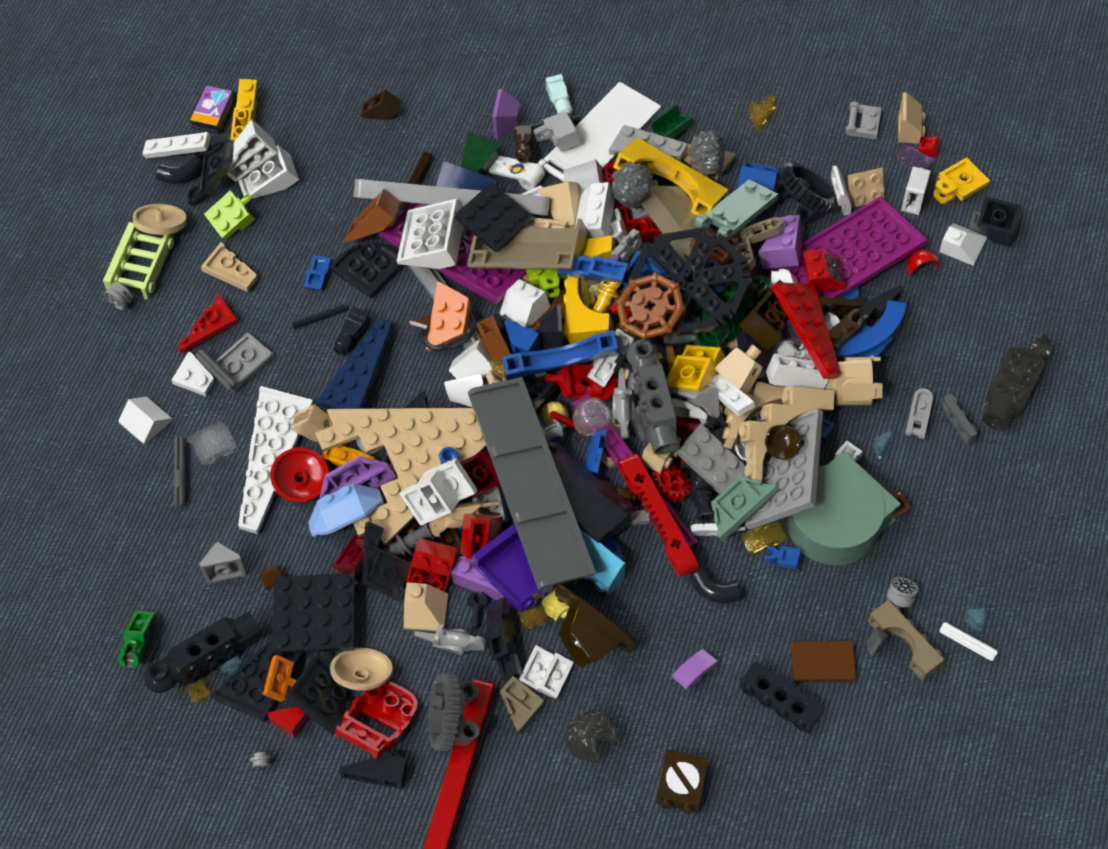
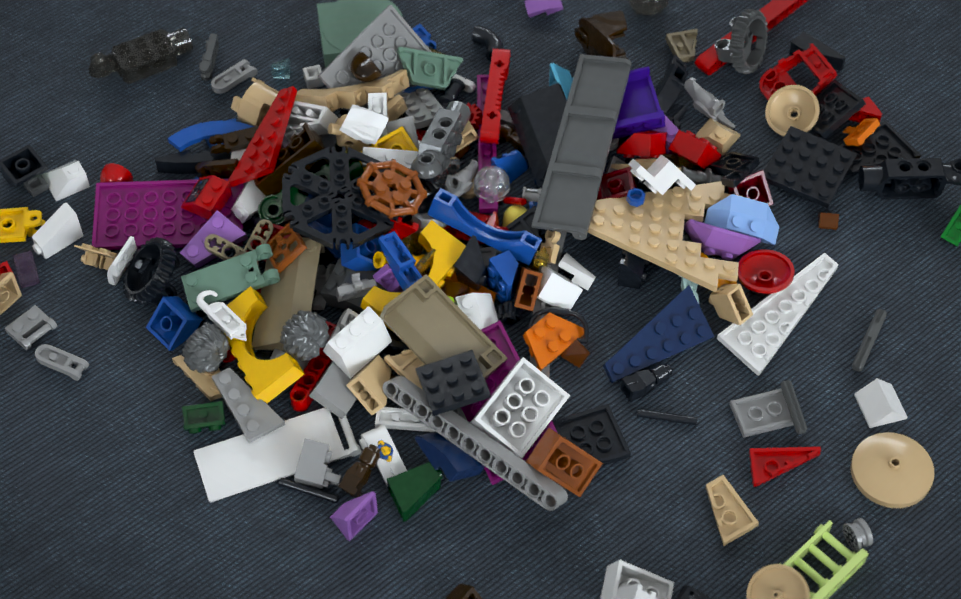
camera: 150 degrees left, 5 degrees down
(113, 369) = (892, 470): none -> tan dish
(193, 376) = (818, 421): white wing -> none
(212, 443) = (829, 348): clear slope -> none
(221, 564) = (868, 233): light grey slope -> none
(230, 214) = (699, 567): lime plate -> none
(260, 759) = (899, 99): light grey plate -> none
(318, 273) = (644, 459): blue slope -> none
(420, 168) = (481, 511): dark brown axle -> none
(545, 672) = (651, 54): white slope -> none
(558, 94) = (281, 513): light aqua piece -> none
(687, 358) = (402, 156): none -> white plate
(712, 174) = (223, 317): none -> white plate
(729, 367) = (364, 124): none -> white slope
(760, 113) = (116, 379): clear yellow slope -> none
(815, 108) = (61, 361): none -> light grey plate
(905, 505) = (308, 31): reddish brown slope -> none

